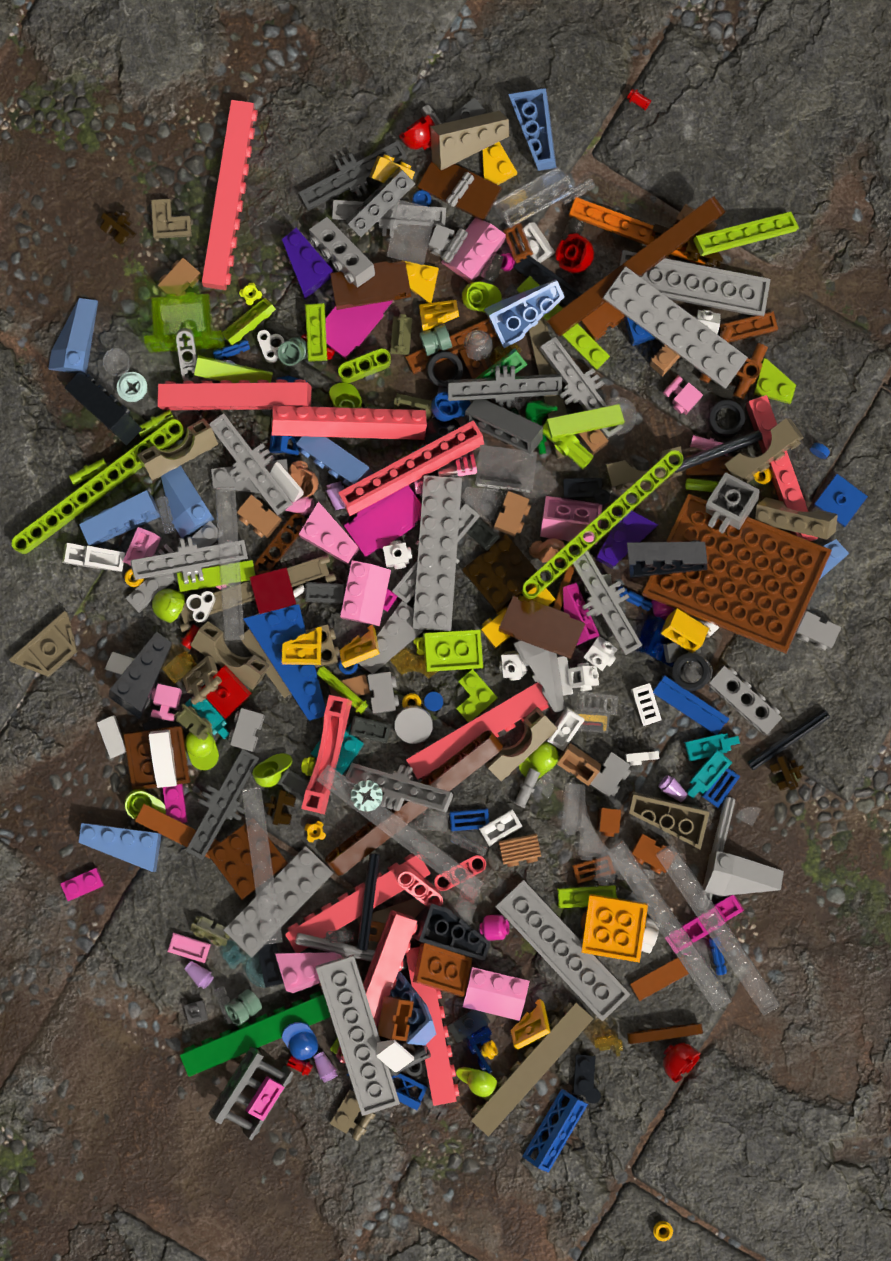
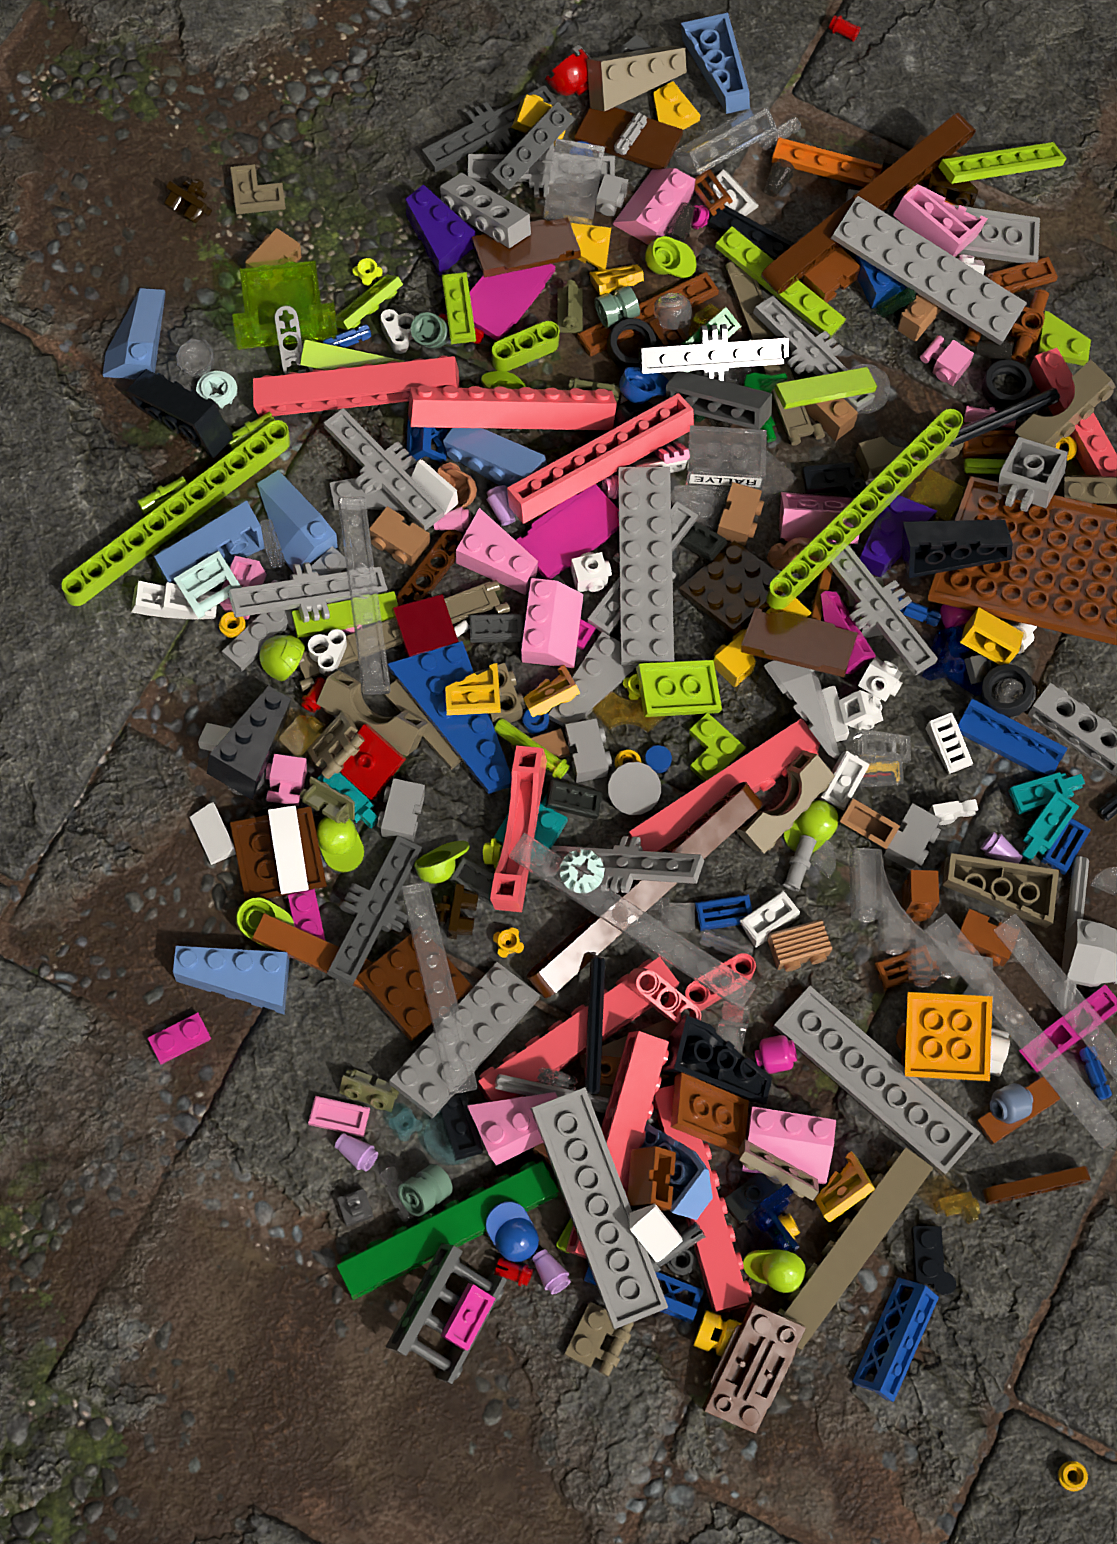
camera: 10 degrees left, 15 degrees down
(49, 648) = (117, 723): dark tan wing -> none
(113, 546) = (202, 579): none -> light aqua plate
(197, 441) = (311, 443): dark tan arch -> none
(228, 195) = (331, 158): coral brick -> none
(441, 1121) = (709, 1322): none -> yellow wheel
(454, 245) = (630, 198): light grey axle -> none
(454, 1145) = (753, 1367): none -> piece
(485, 1012) = (778, 1170): none -> dark tan plate
(512, 665) = (760, 692): white brick -> none
(518, 313) = (721, 271): medium blue wedge -> none
(570, 447) = (807, 422): lime piece -> none
(575, 253) = (786, 198): red cylinder -> none
(580, 896) = (887, 1006): lime tile -> none
(649, 347) = (896, 302): none -> clear green axle
(654, 977) = (1011, 1103): none -> sand blue head
(663, 505) = (939, 494): none -> clear yellow piece
(679, 1060) = (1064, 1220): red cylinder -> none
(688, 286) = (937, 220): none -> bright pink wedge

